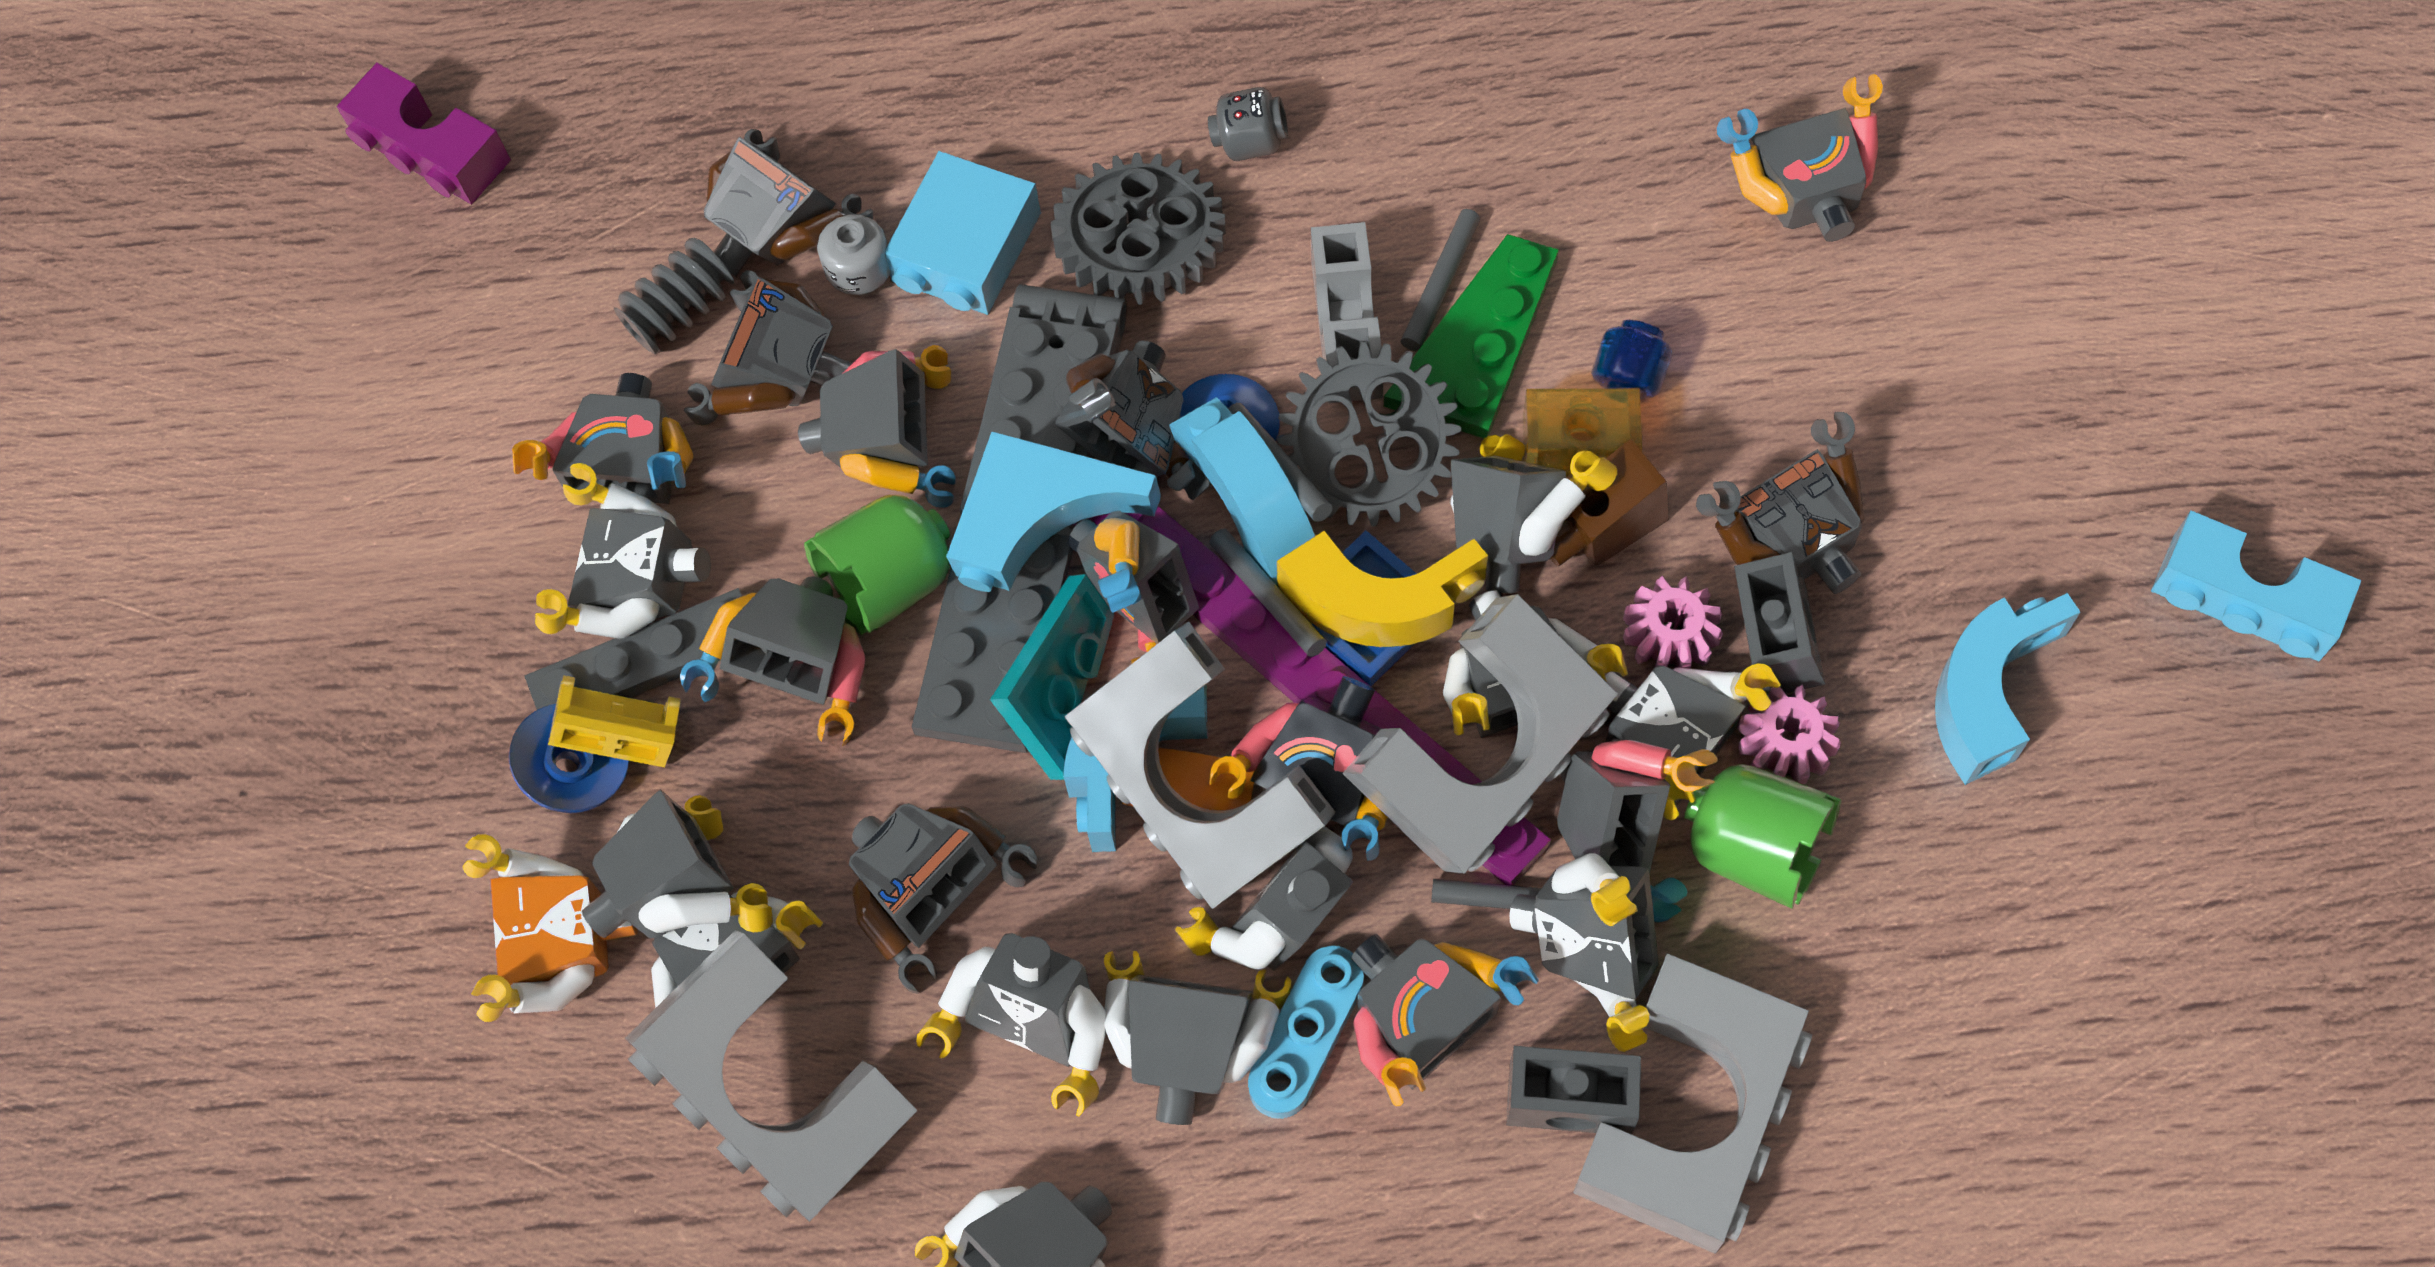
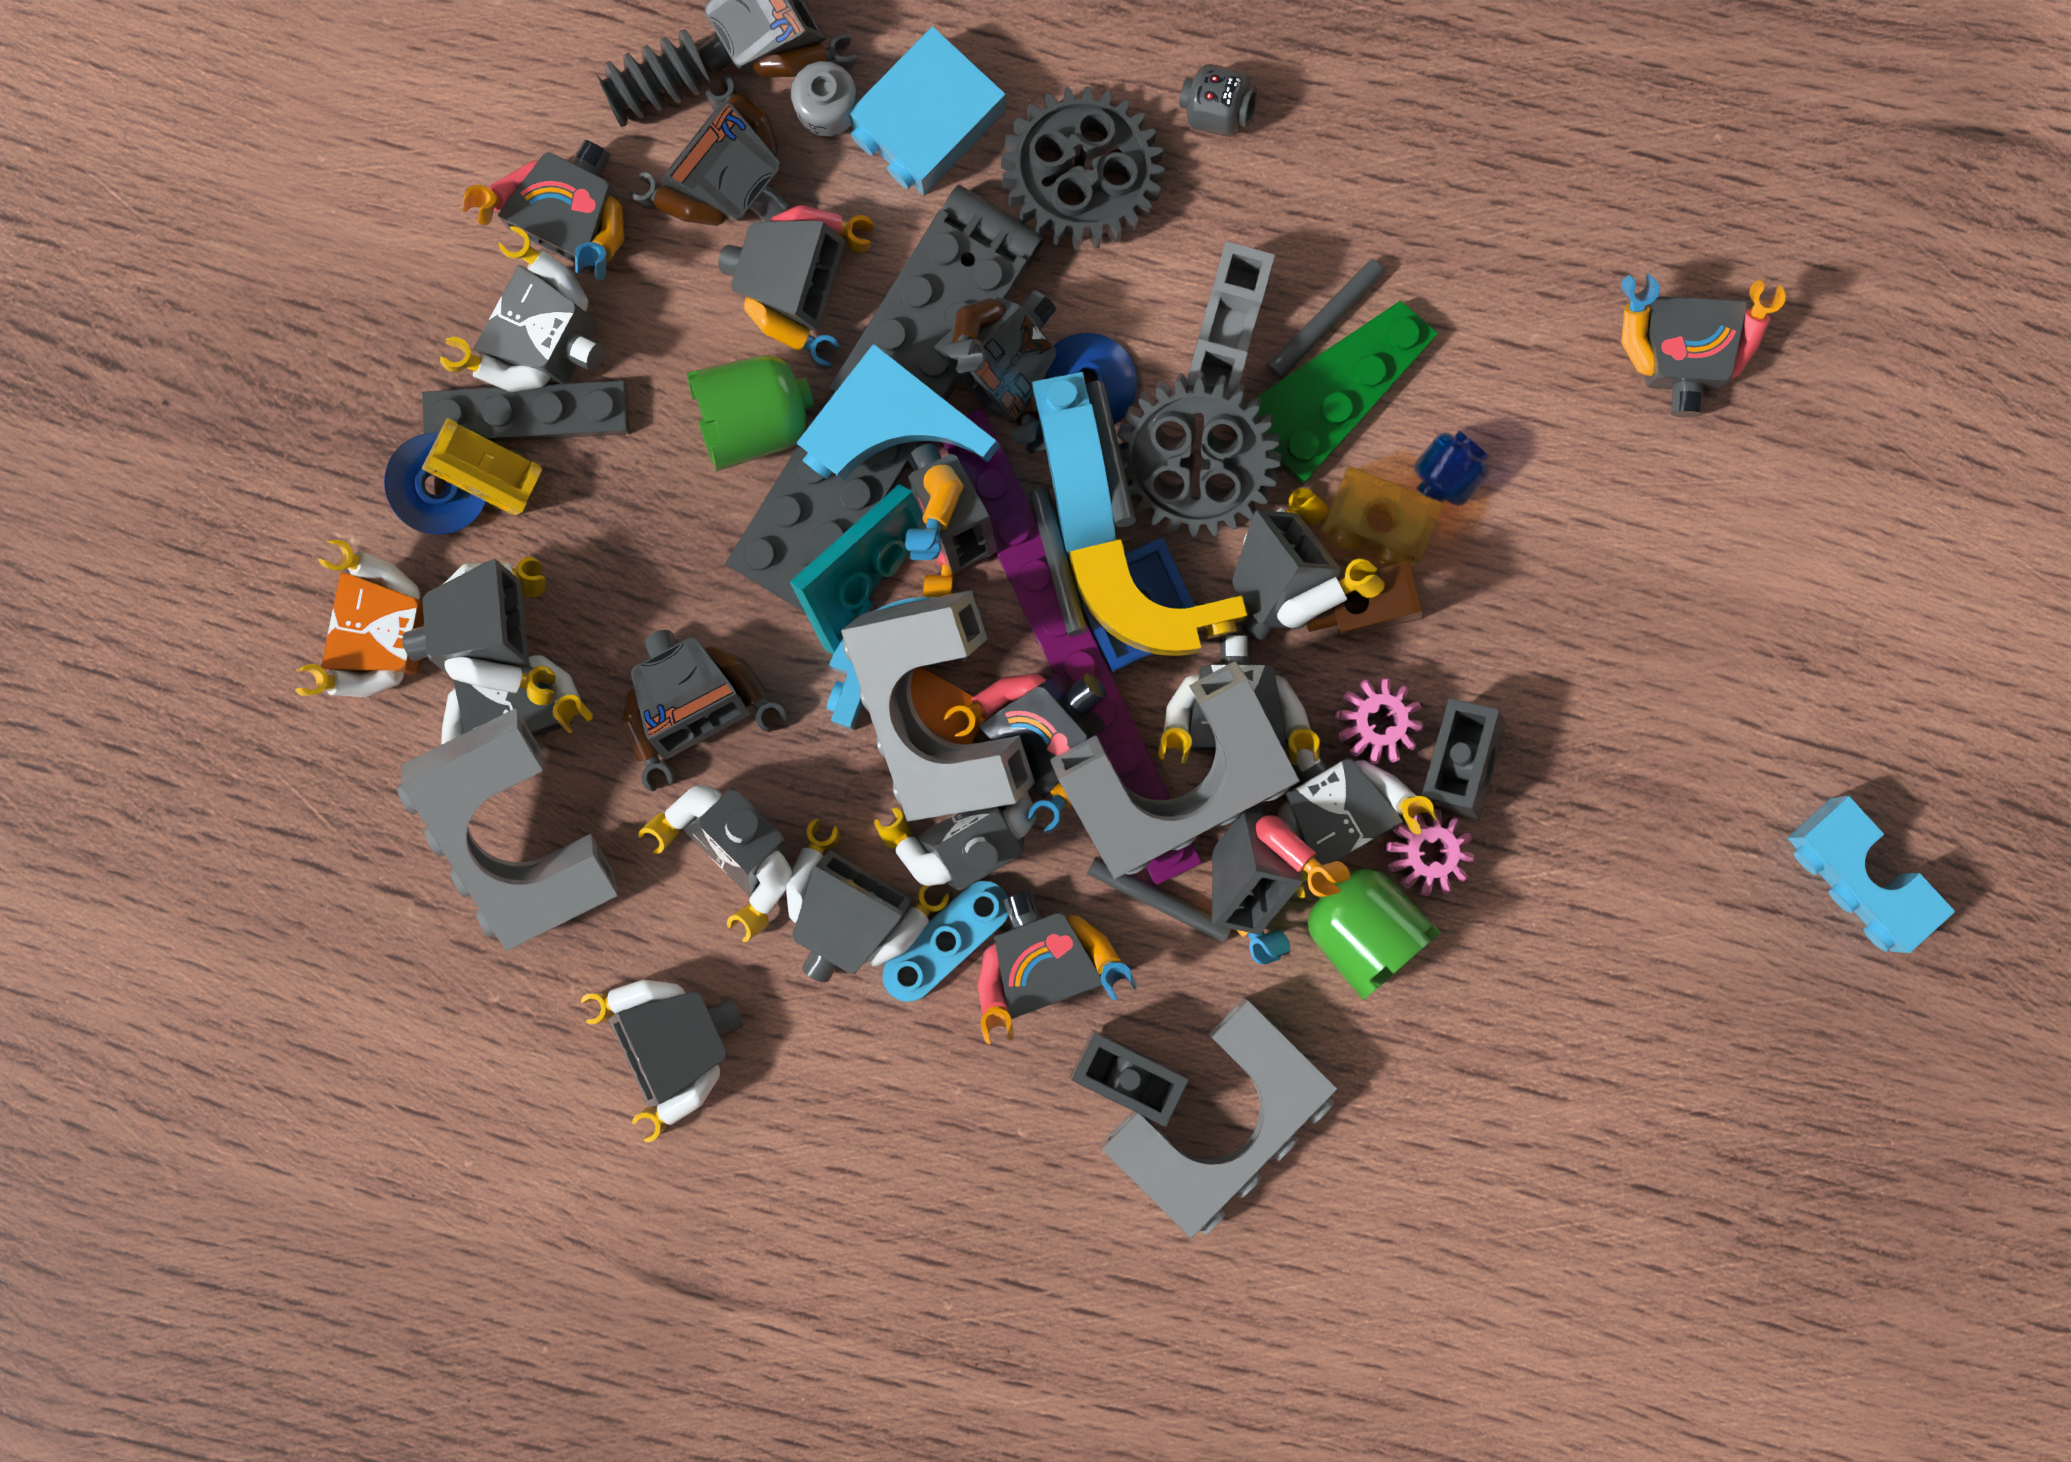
camera: 15 degrees right, 20 degrees up
(789, 641) = (646, 454): dark grey torso -> none
(1600, 933) = (1202, 962): torso -> none
(1802, 510) = (1526, 666): torso -> none
(1969, 701) = (1589, 879): medium azure arch -> none

